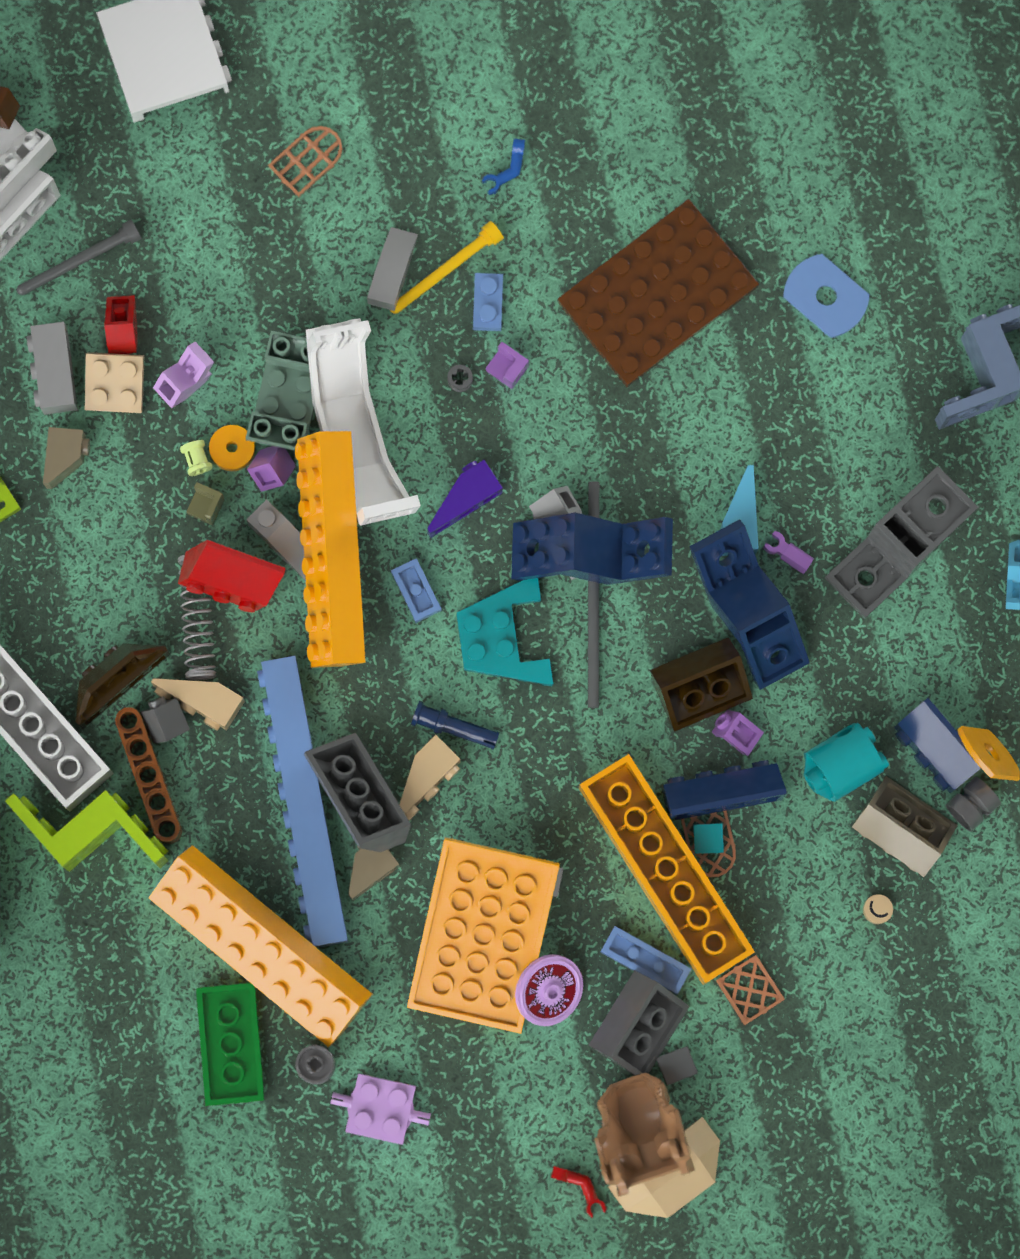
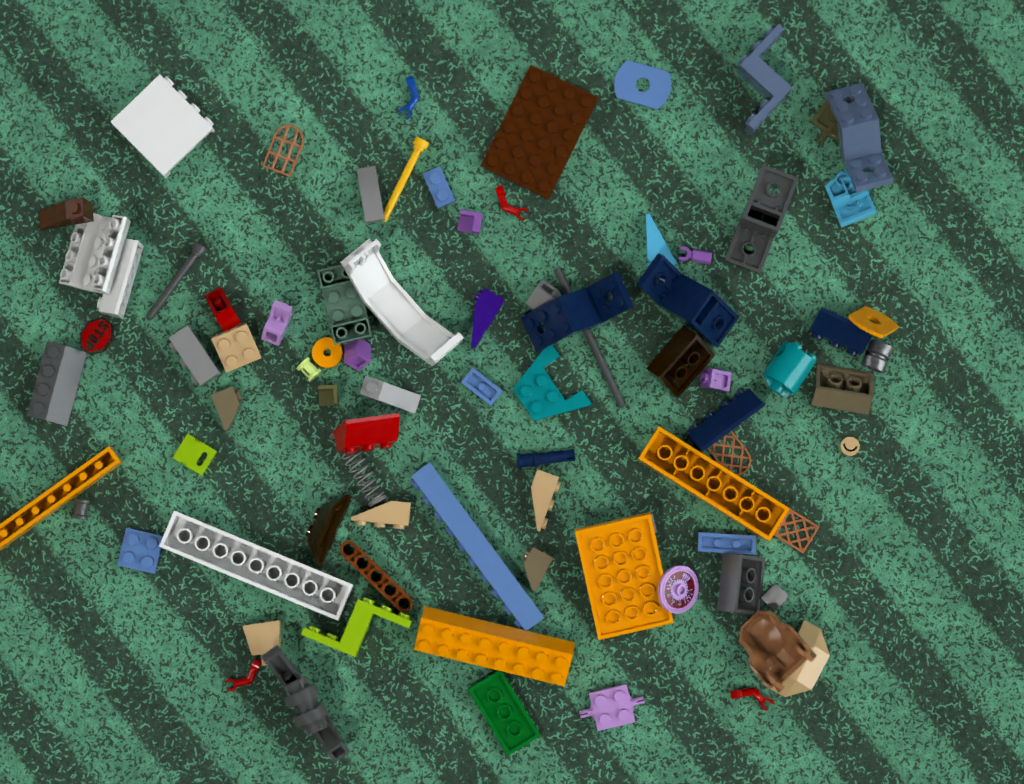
camera: 25 degrees left, 5 degrees up
(164, 719) = (369, 538): dark grey brick -> none
(315, 1064) = (561, 700): flat silver wheel -> none
(330, 549) = (420, 388): light orange brick -> none
(359, 793) = (509, 527): dark grey slope -> none
(466, 383) = (439, 241): dark grey bush -> none
(566, 371) = (504, 205): none -> red arm
(708, 838) = (729, 452): teal tile -> none

